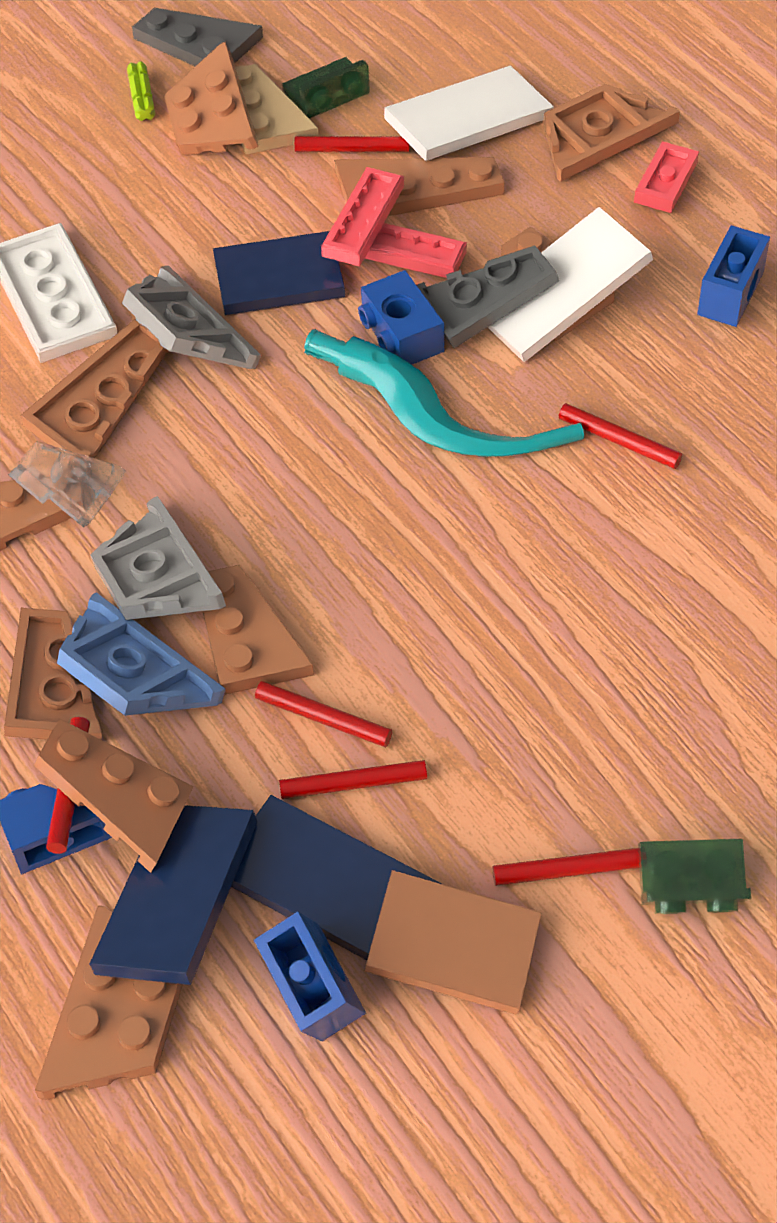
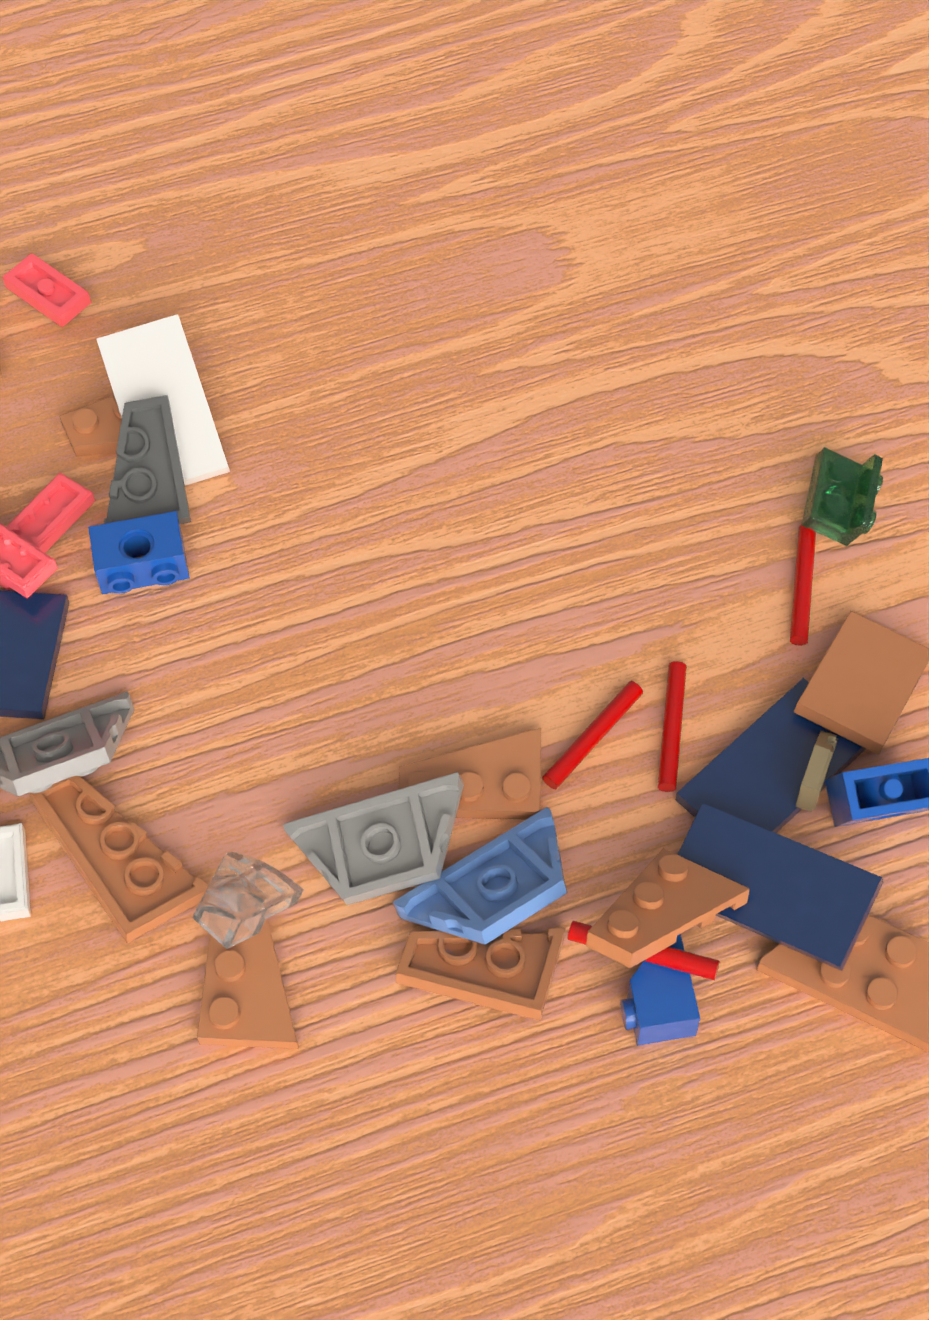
camera: 75 degrees left, 5 degrees up
(324, 905) = (816, 771): none -> dark tan tile
(416, 401) = (245, 569): teal animal -> none
(621, 436) = (353, 421): bar -> none
(733, 275) = (213, 272): blue brick -> none

